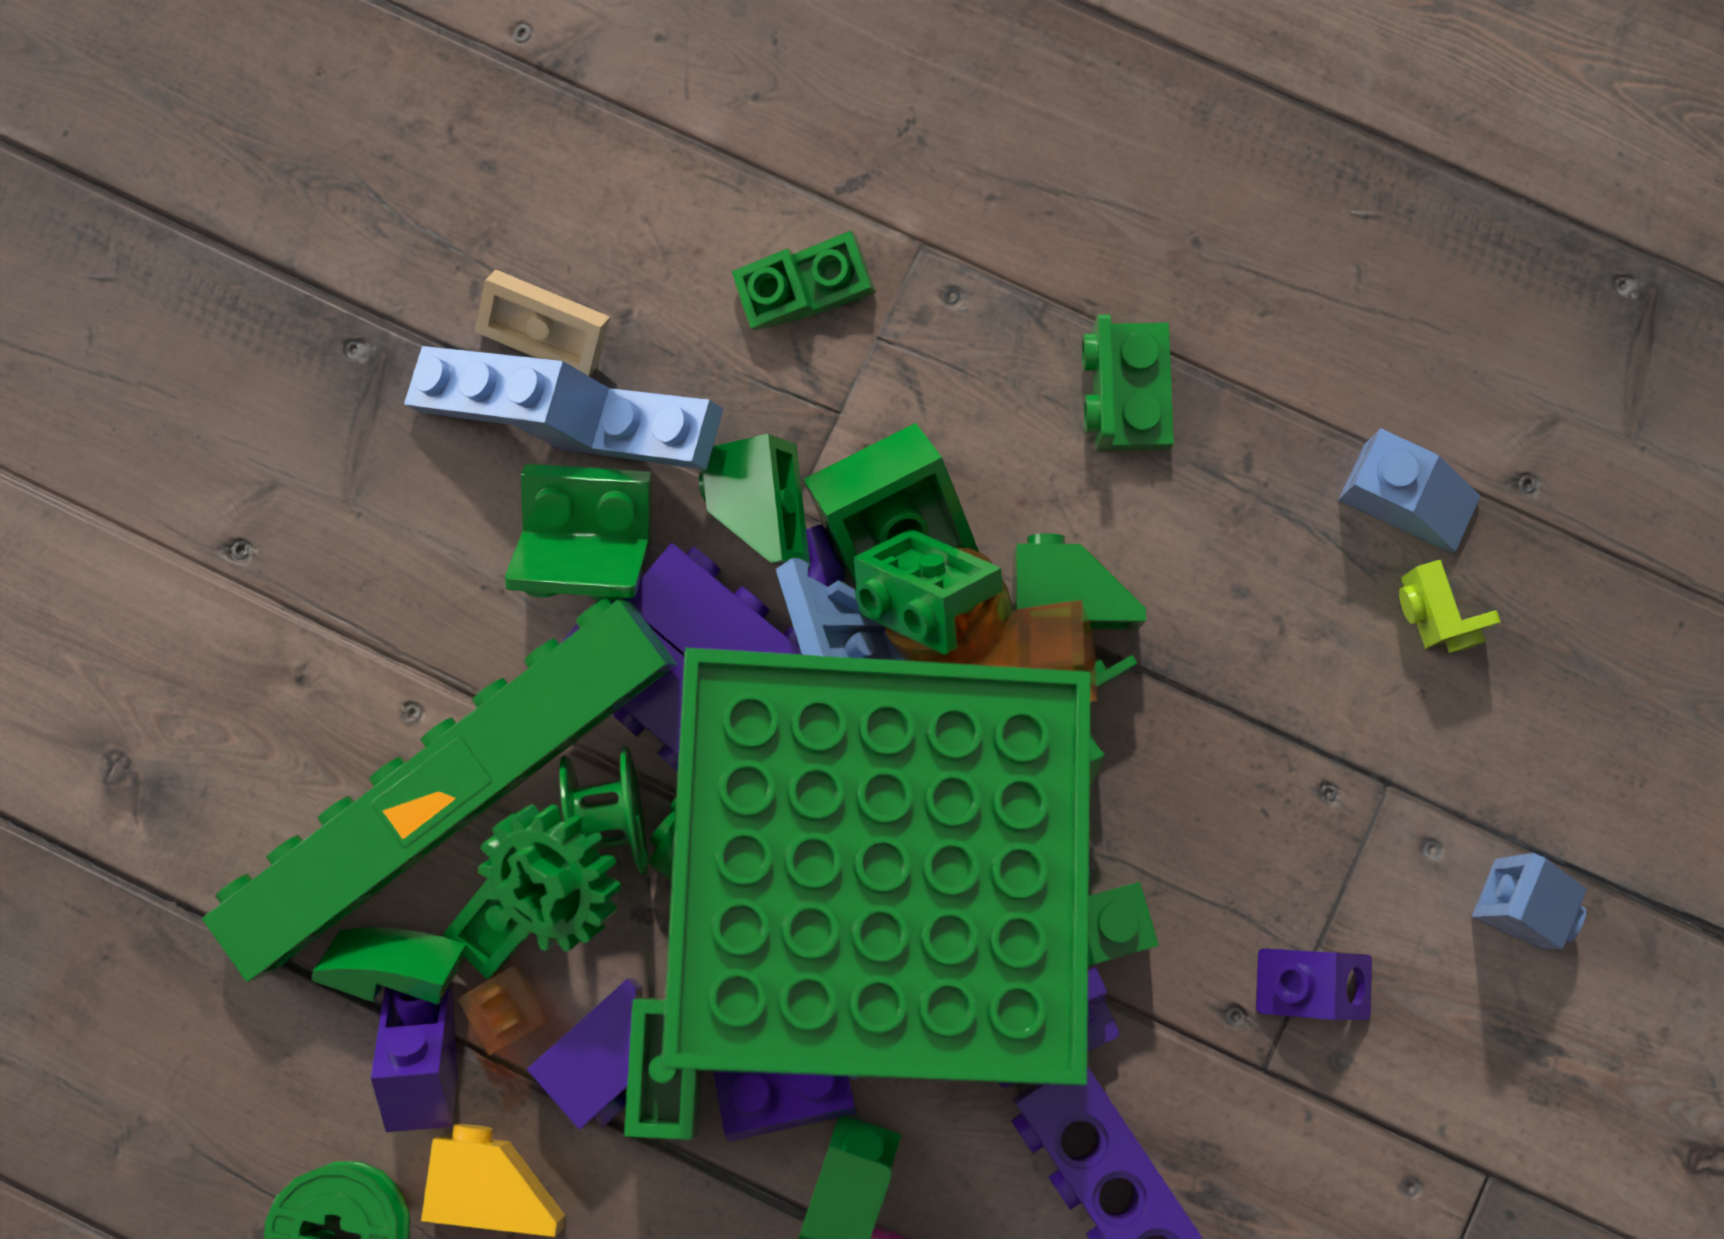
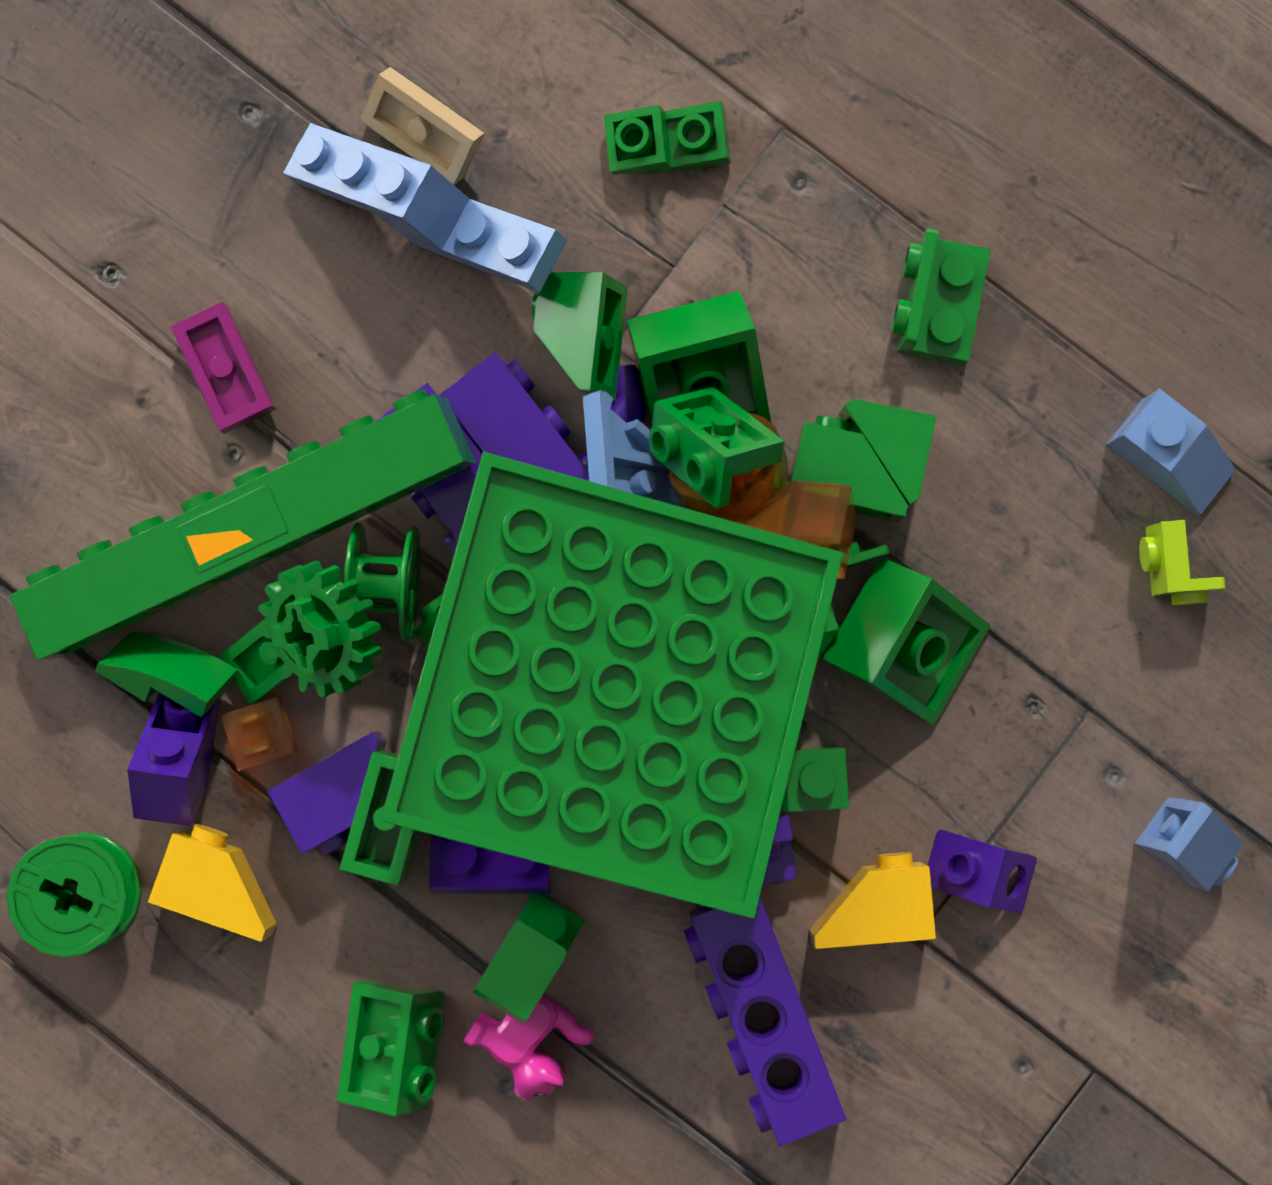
camera: 15 degrees right, 5 degrees up
(383, 623) = (223, 367): none -> magenta plate
(582, 532) = (417, 325): green bracket -> none
(1119, 540) = (898, 439): none -> green slope
(1178, 752) = (907, 640): none -> green slope
(1216, 1045) = (880, 906): none -> yellow slope

